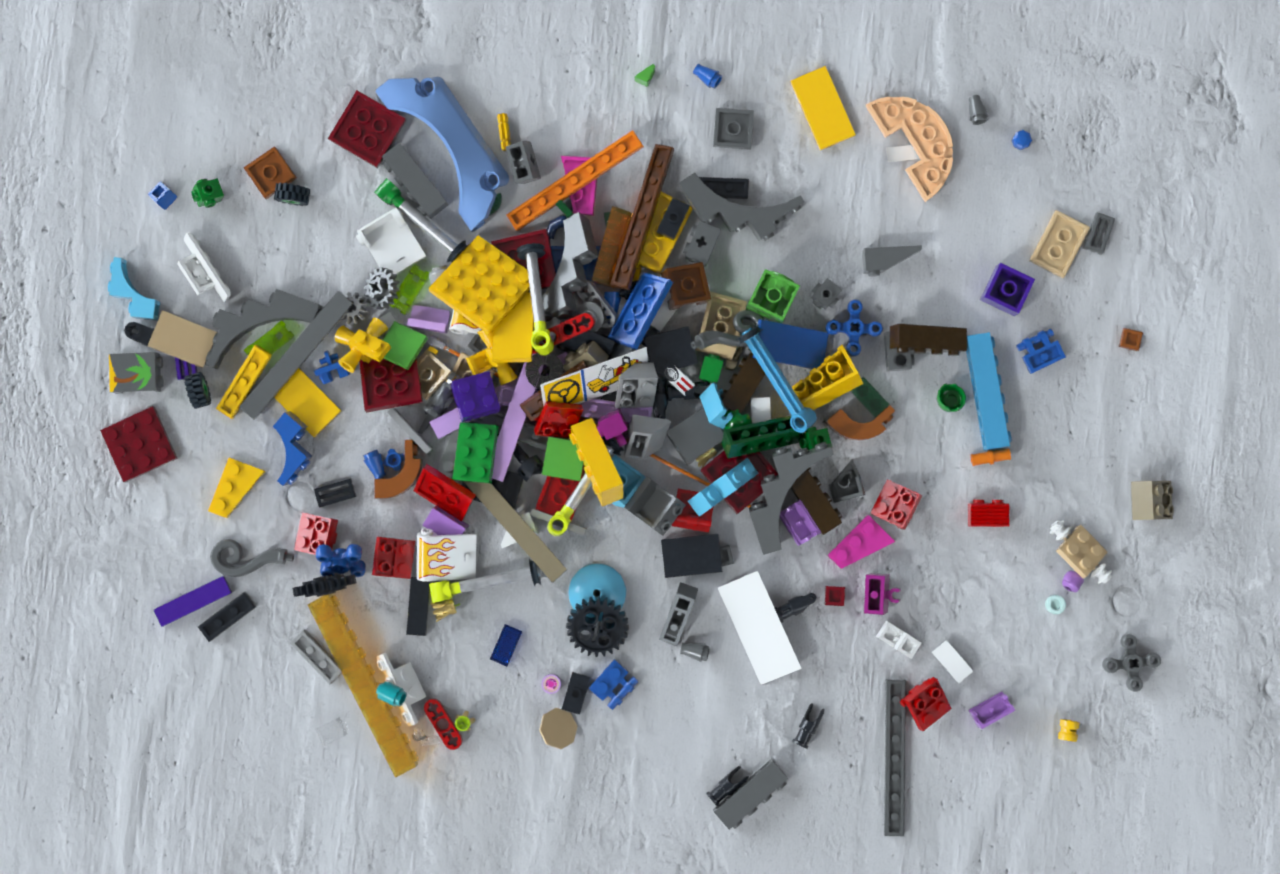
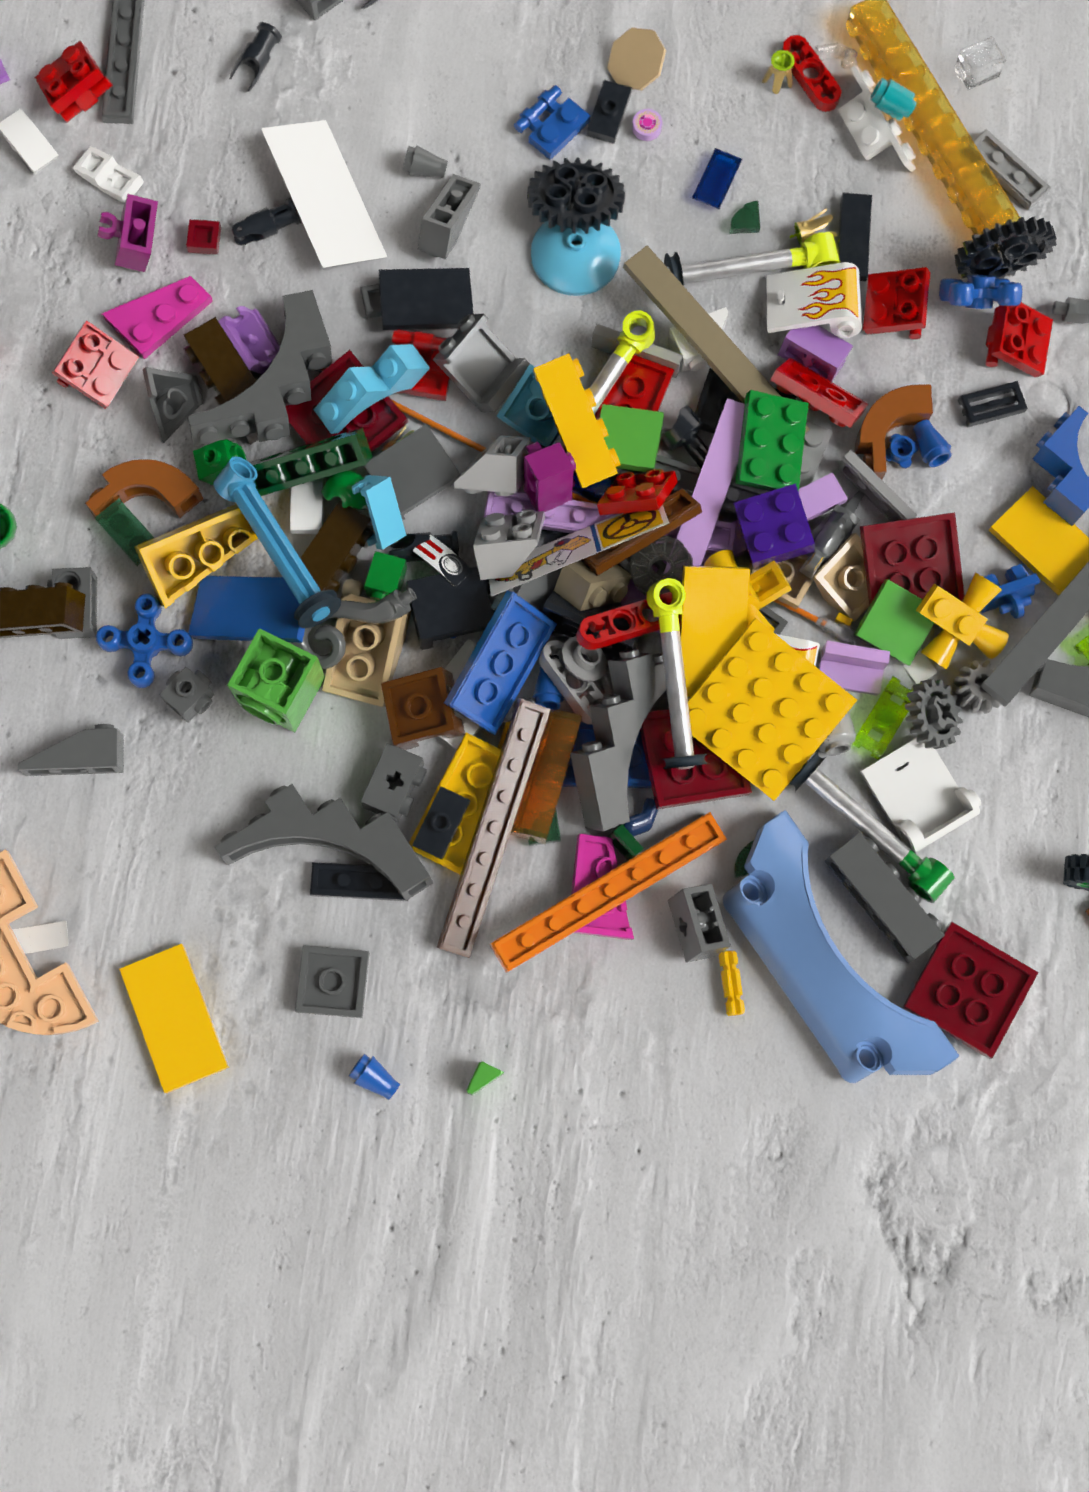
camera: 175 degrees right, 10 degrees down
(487, 617) = (746, 219): none -> clear green tile
(661, 398) = (468, 530): black piece -> none

